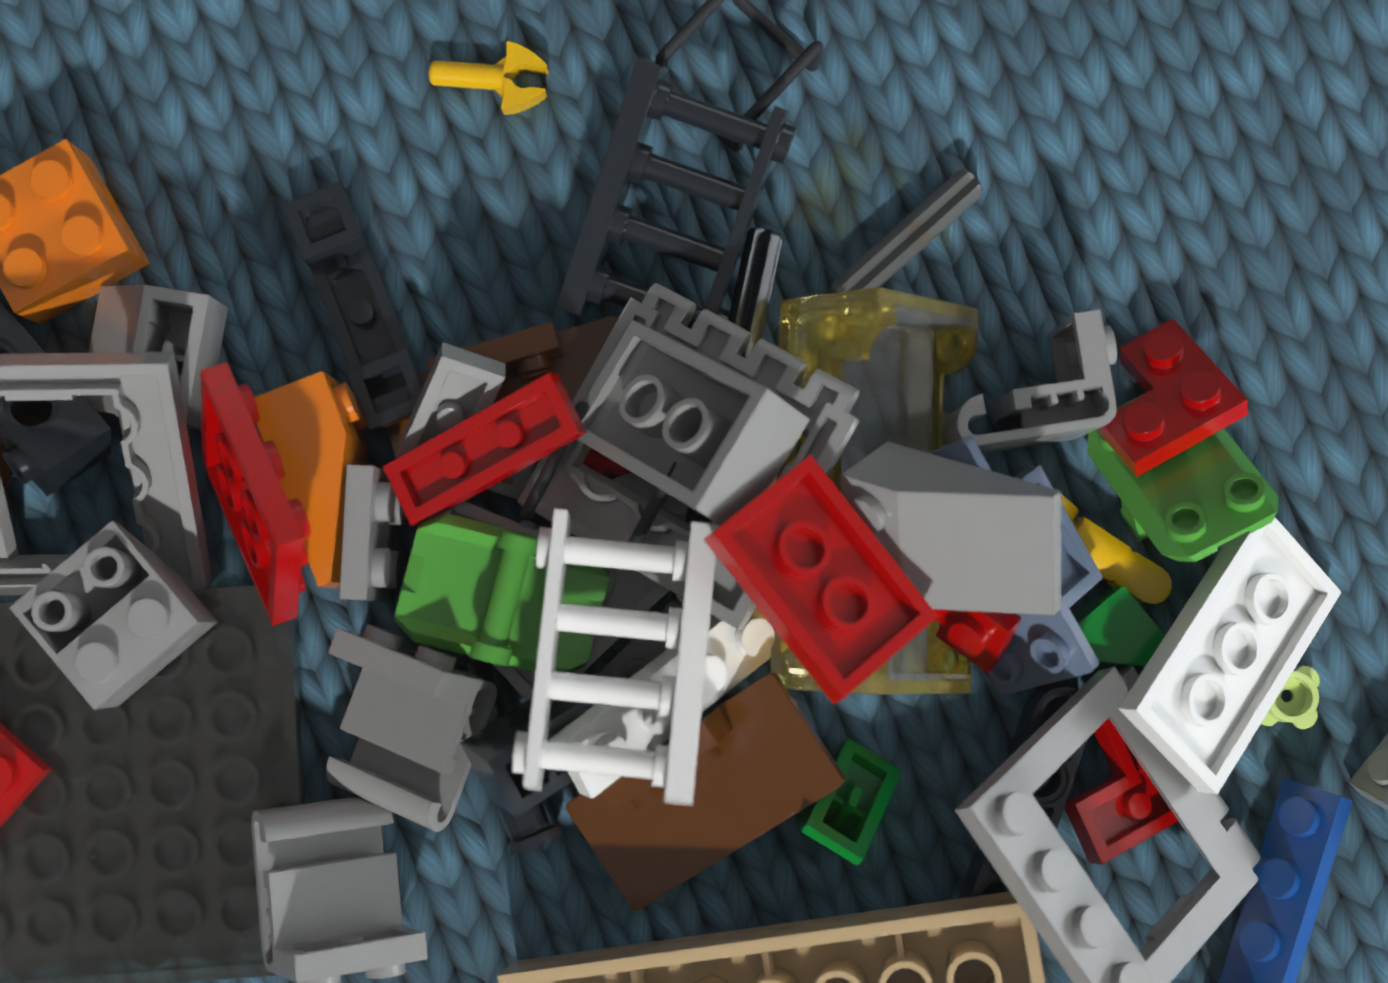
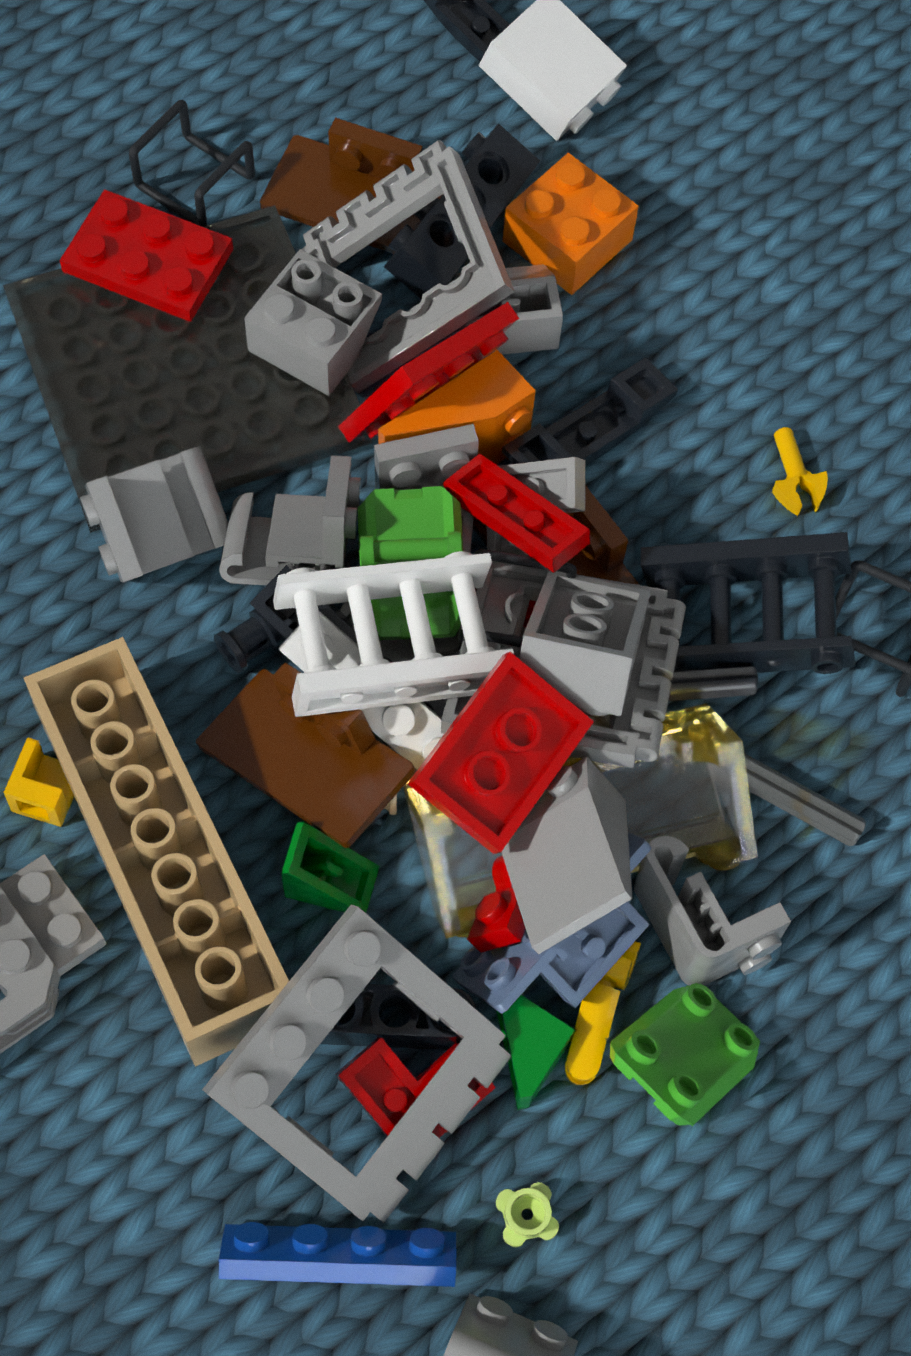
camera: 70 degrees right, 20 degrees down
(1182, 402) = (743, 1039): red plate -> none
(1230, 654) = (551, 1133): white plate -> none

